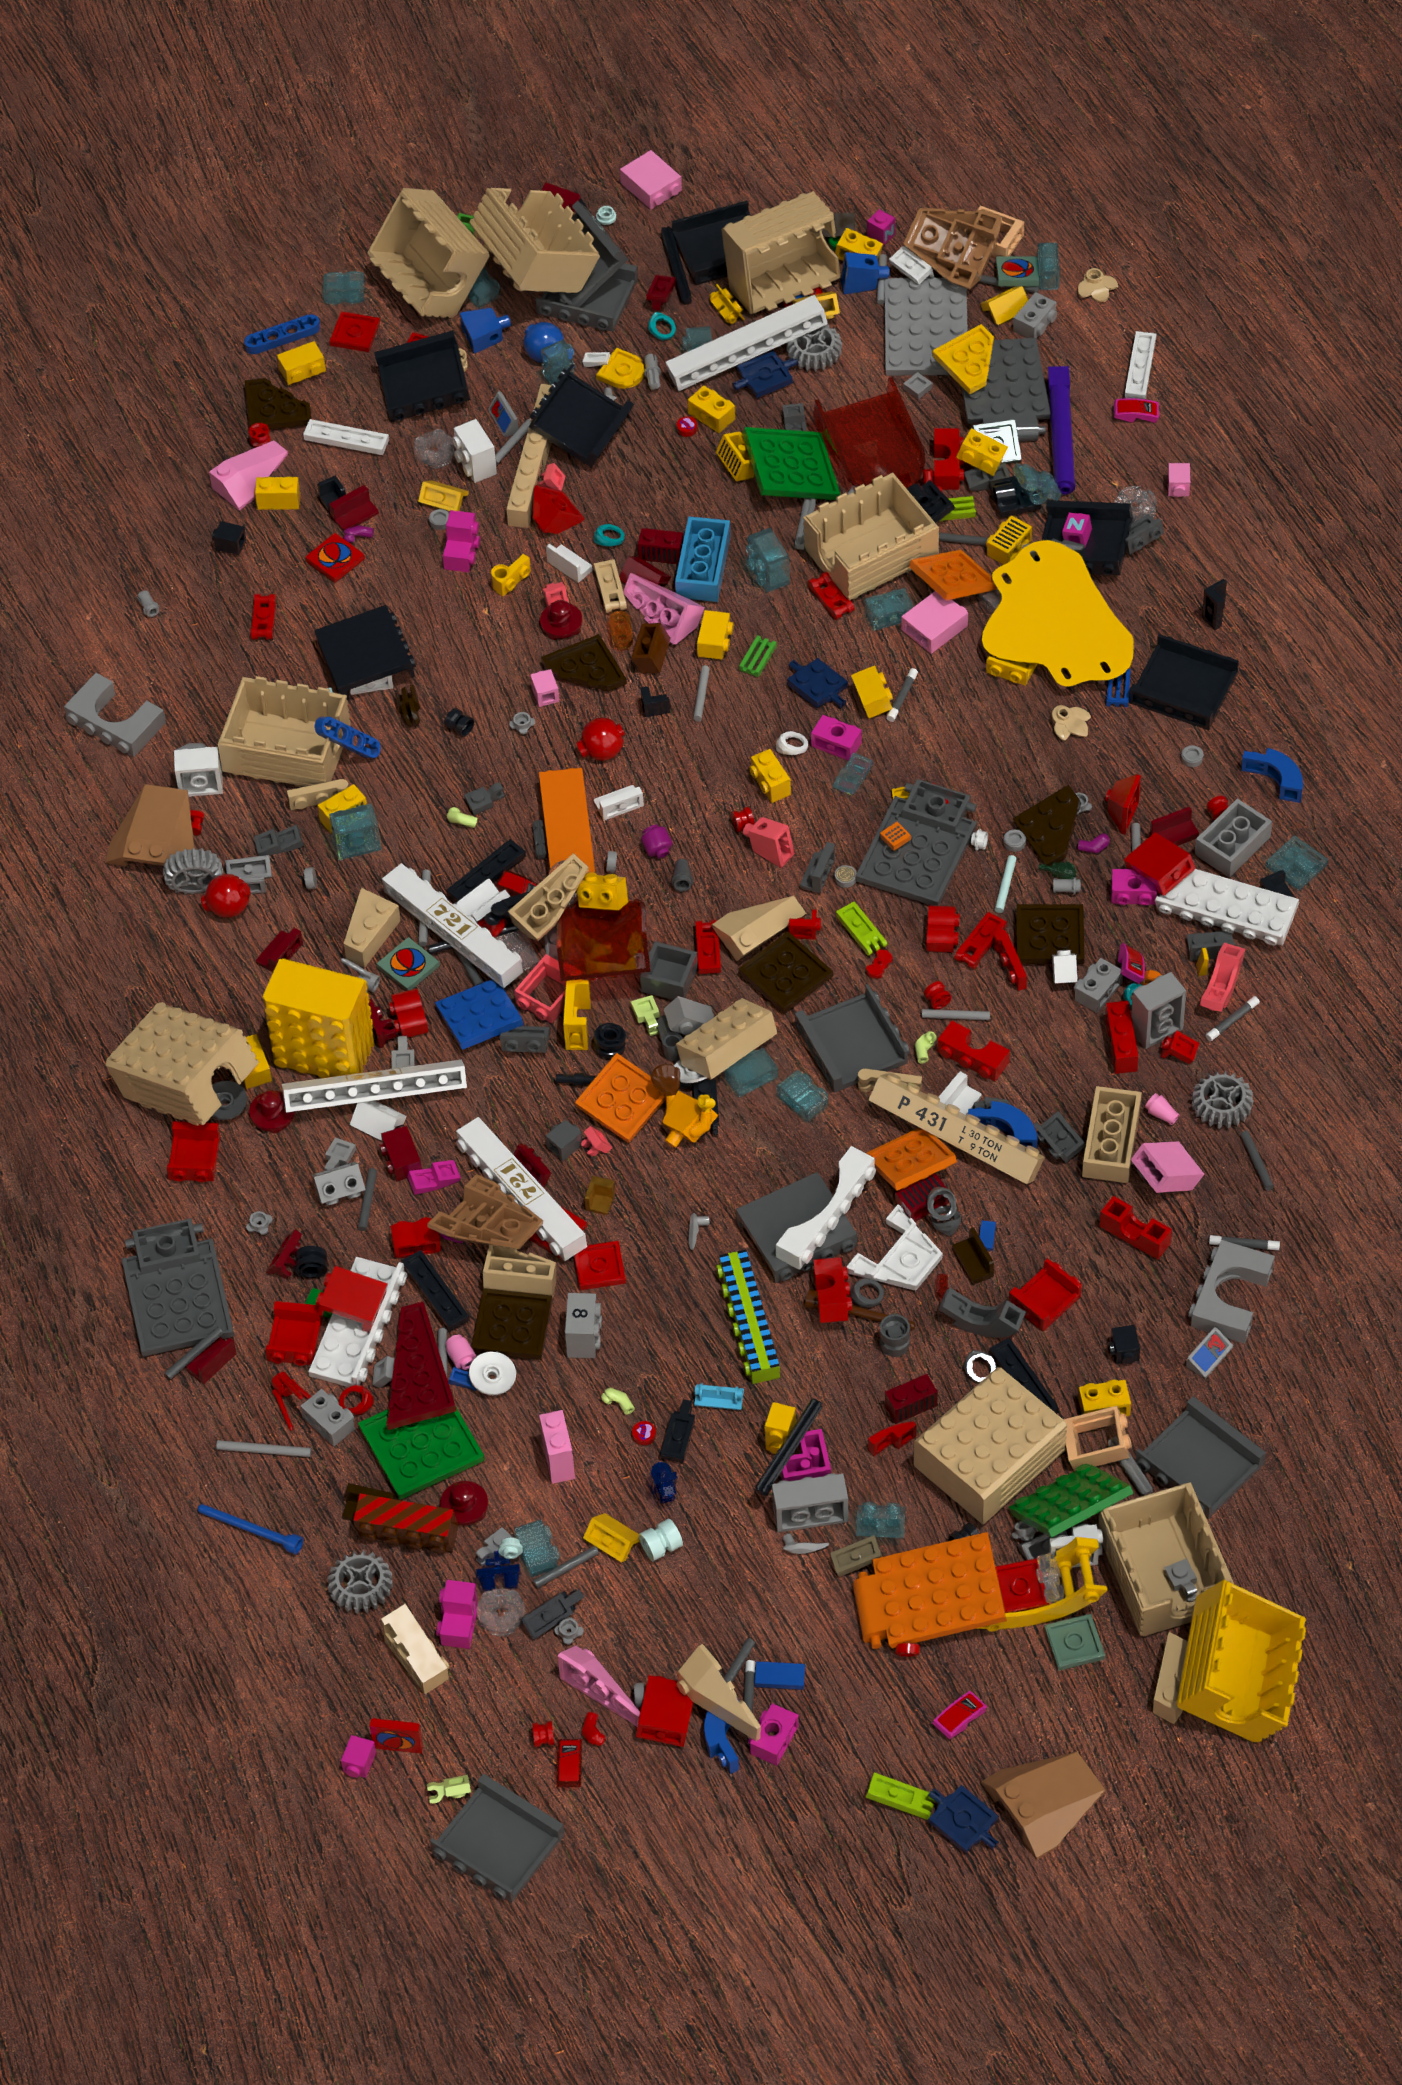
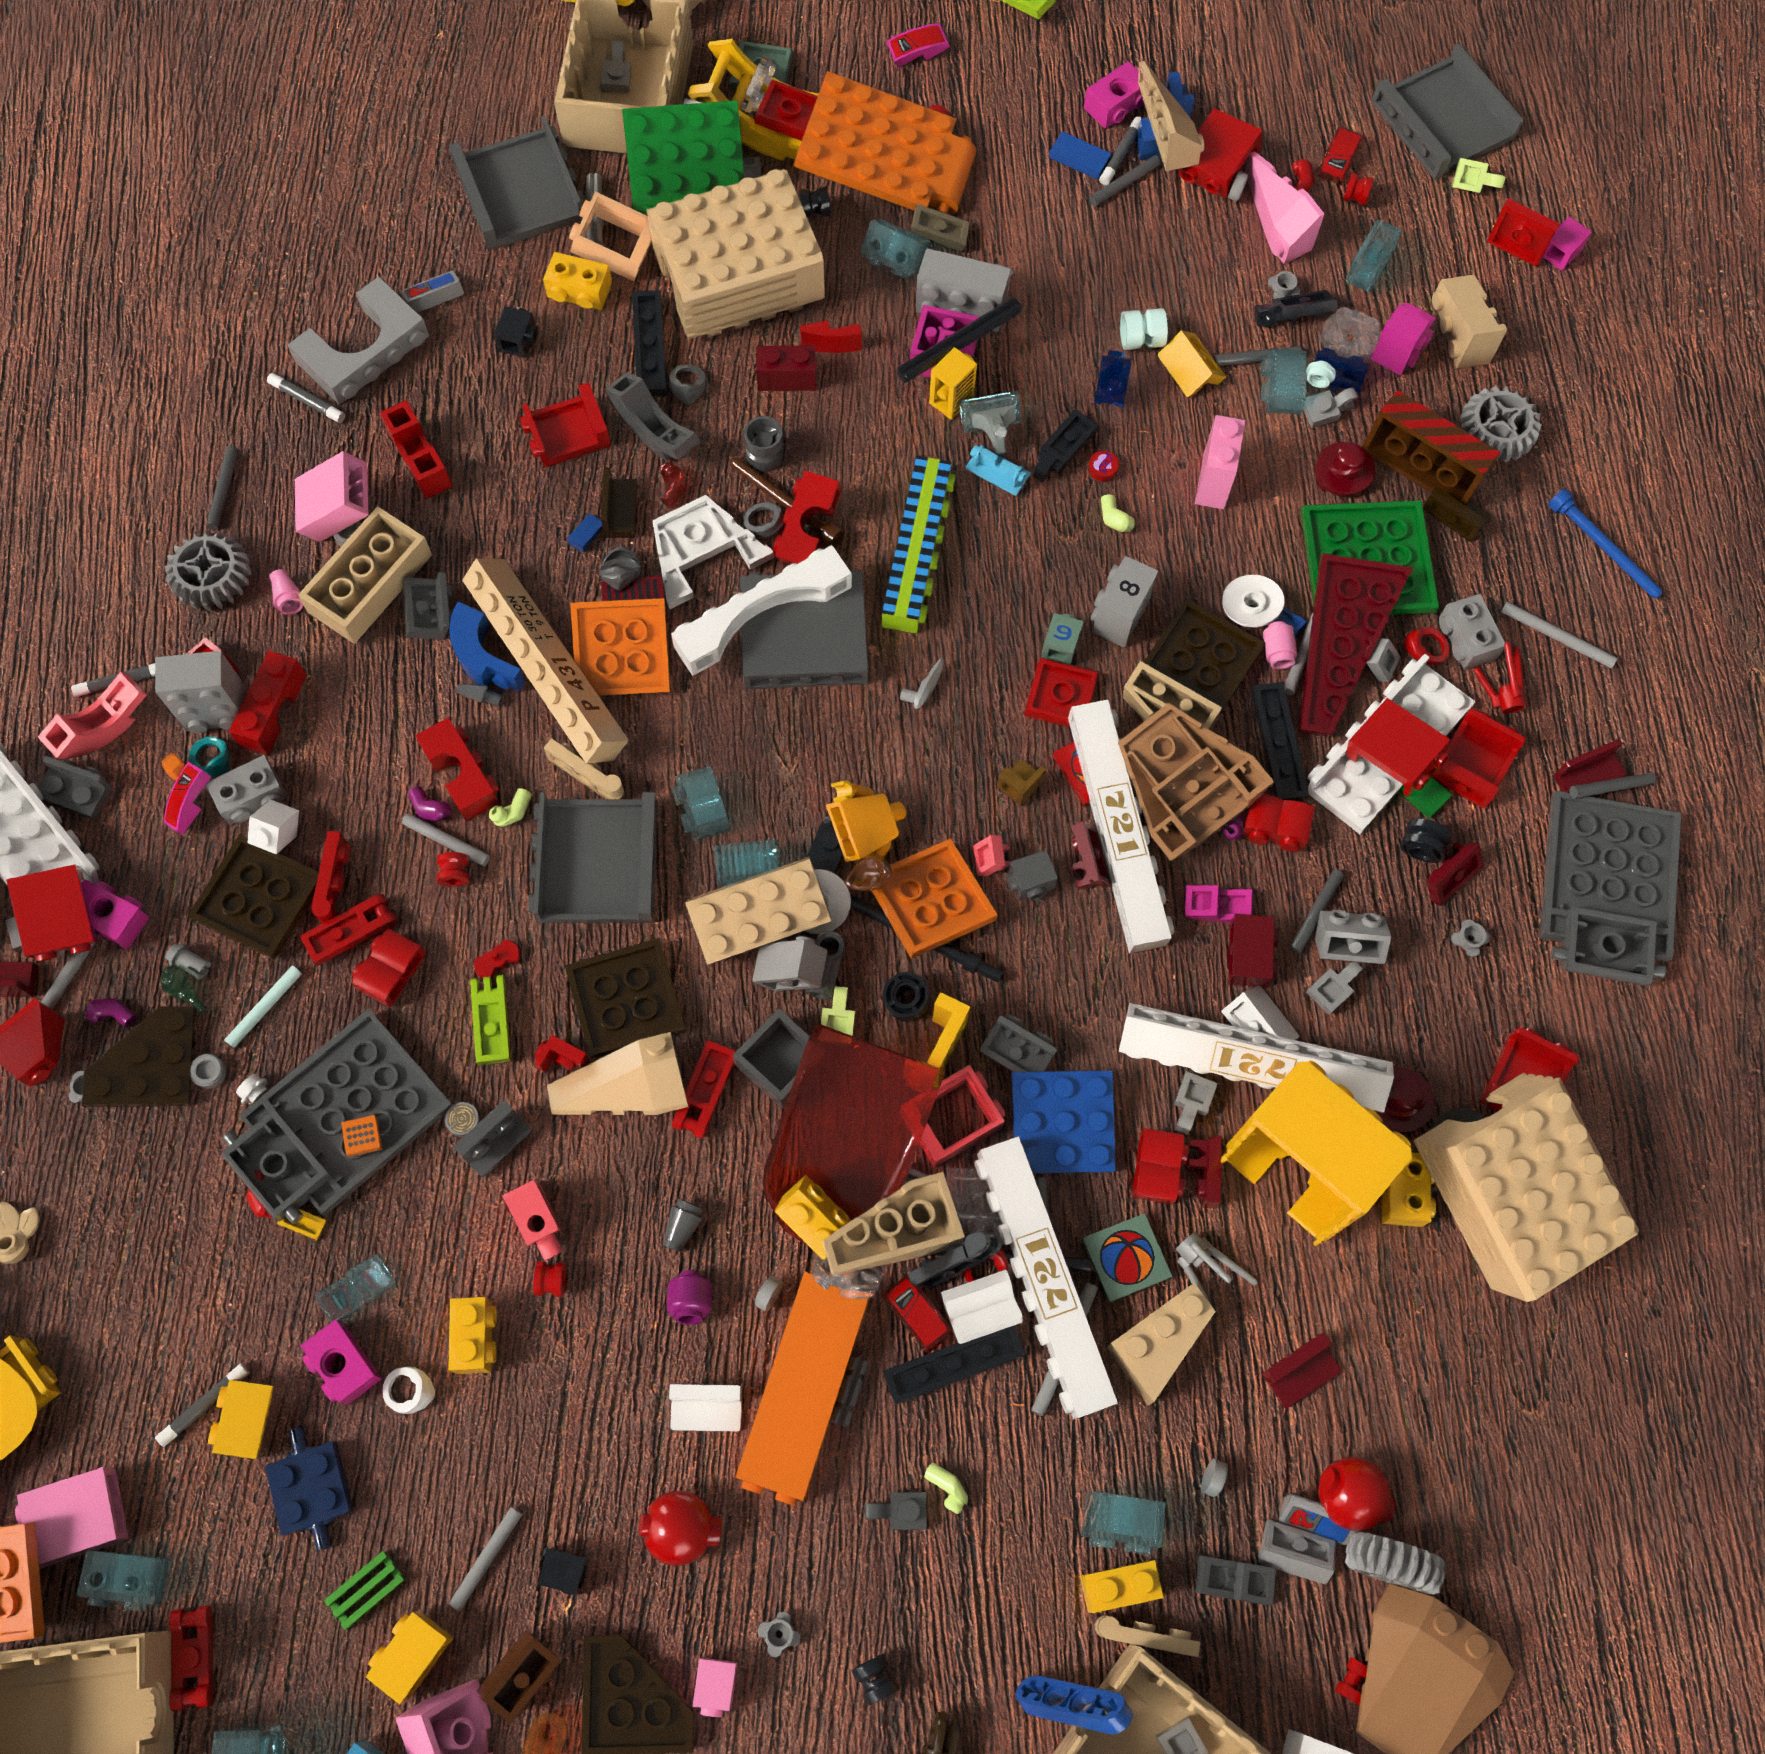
camera: 160 degrees left, 15 degrees up
(507, 1671) = (1373, 256): none -> clear light blue brick
(615, 1294) = (1062, 638): none -> sand green brick
(739, 1424) = (992, 415): none -> piece
(960, 1094) = (517, 716): white panel -> none
(981, 1025) = (426, 808): none -> magenta arm
(1202, 963) = (100, 760): yellow piece -> none

